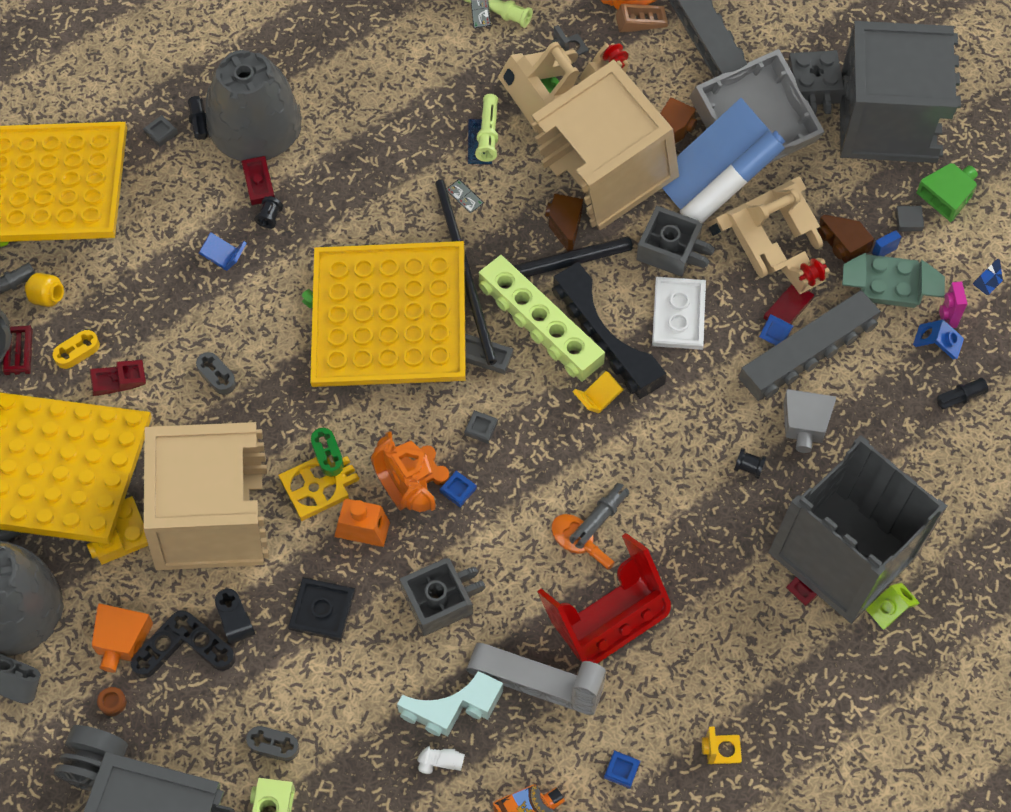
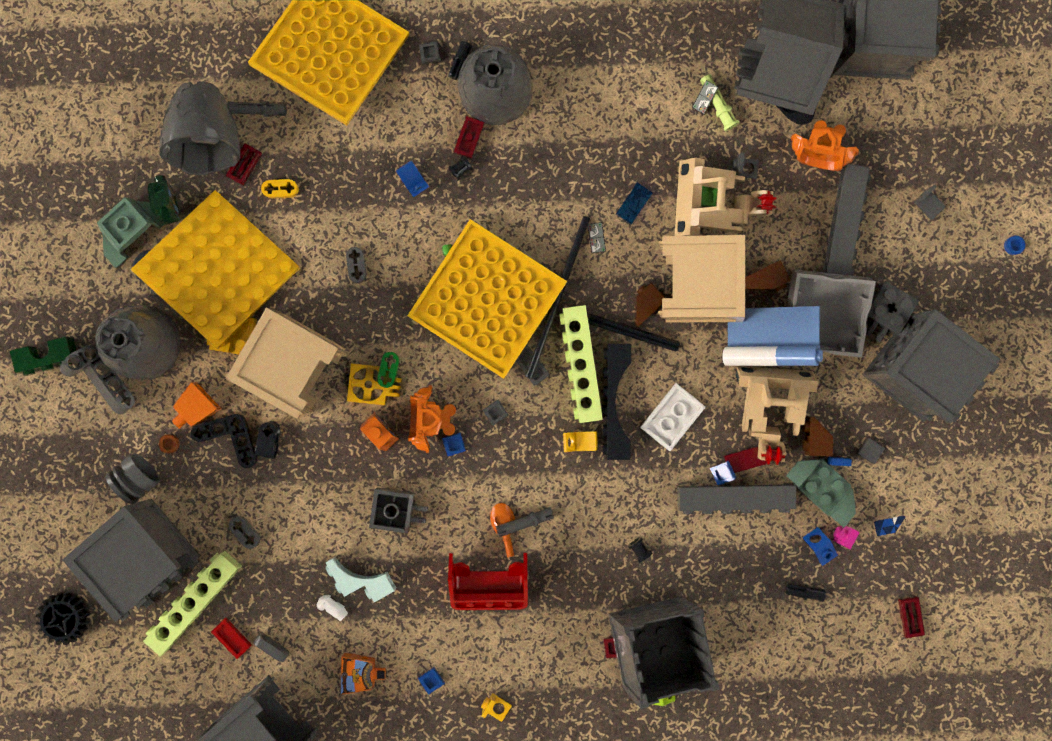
camera: 30 degrees right, 25 degrees up
(44, 289) = (283, 132): yellow head -> none
(123, 377) = (294, 227): dark red slope -> none
(321, 609) = (323, 467): black tile -> none
(487, 135) = (639, 207): yellowish green pin -> none
(537, 679) = (437, 625): light grey beam -> none
(628, 23) = (800, 171): medium nougat slope -> none
(671, 242) = (713, 368): dark grey hinge -> none
(806, 417) = (696, 545): light grey torso -> none
(948, 189) = (912, 450): bright green torso -> none

